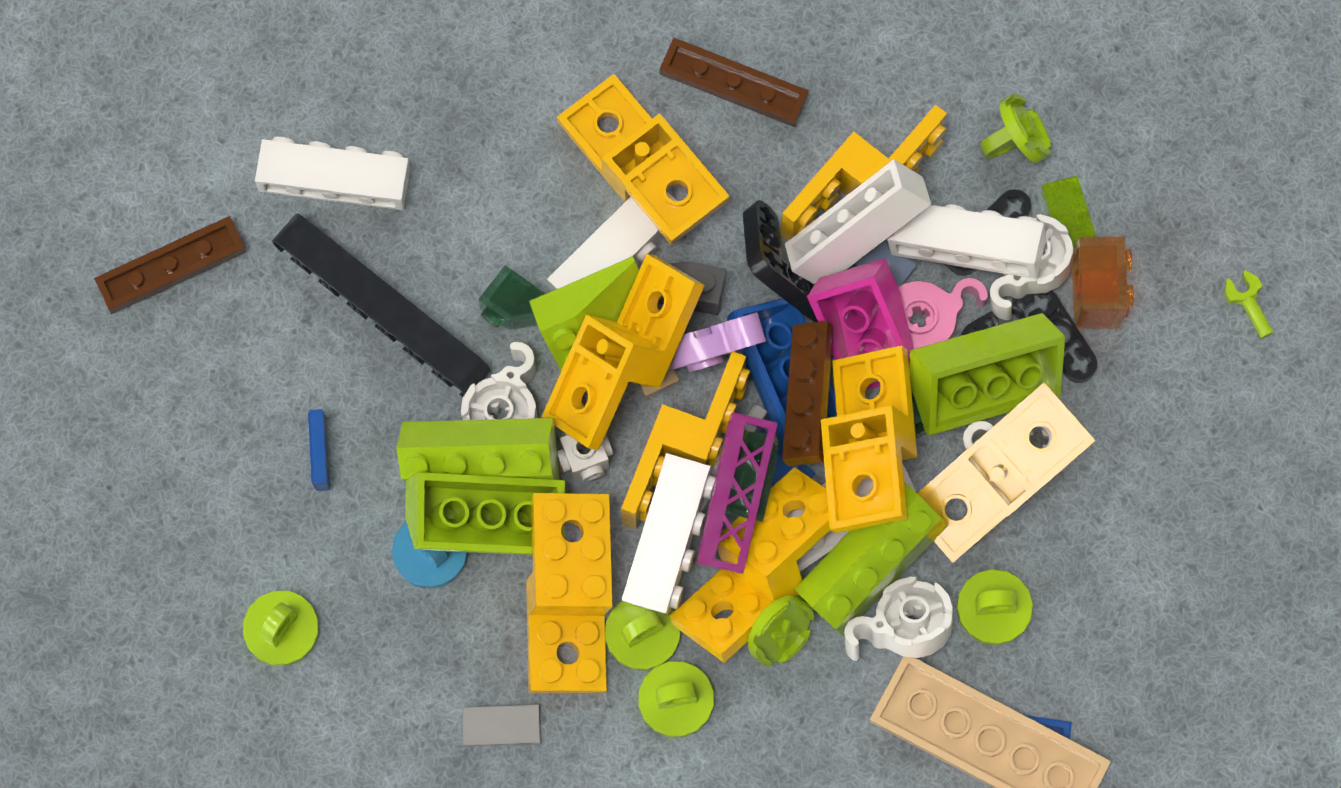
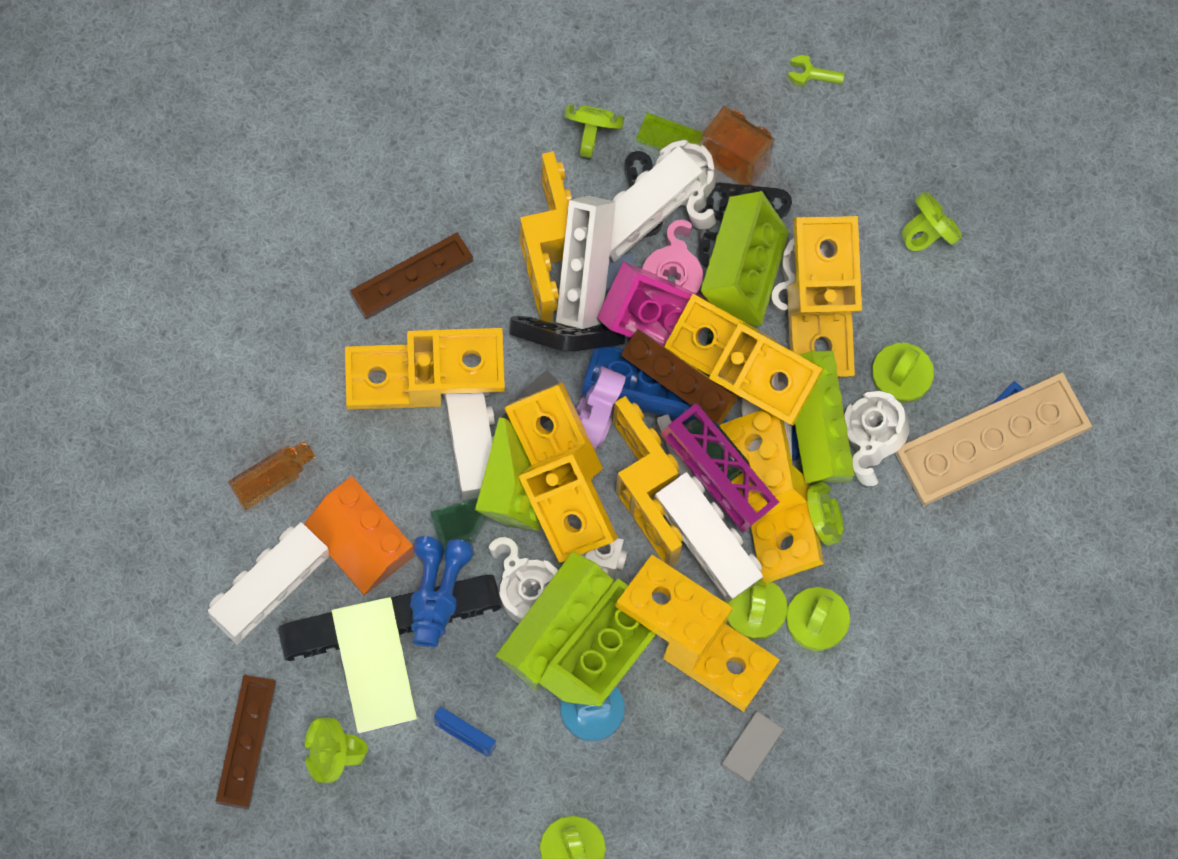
camera: 60 degrees left, 5 degrees down
(212, 343) = (331, 750): none -> lime tile
(322, 322) = (374, 664): none -> sticker
(408, 331) = (434, 608): none -> blue piece
(439, 100) = (270, 474): none -> clear orange hinge
(439, 221) = (359, 536): none -> orange slope
(1175, 525) = (931, 222): none -> lime tile

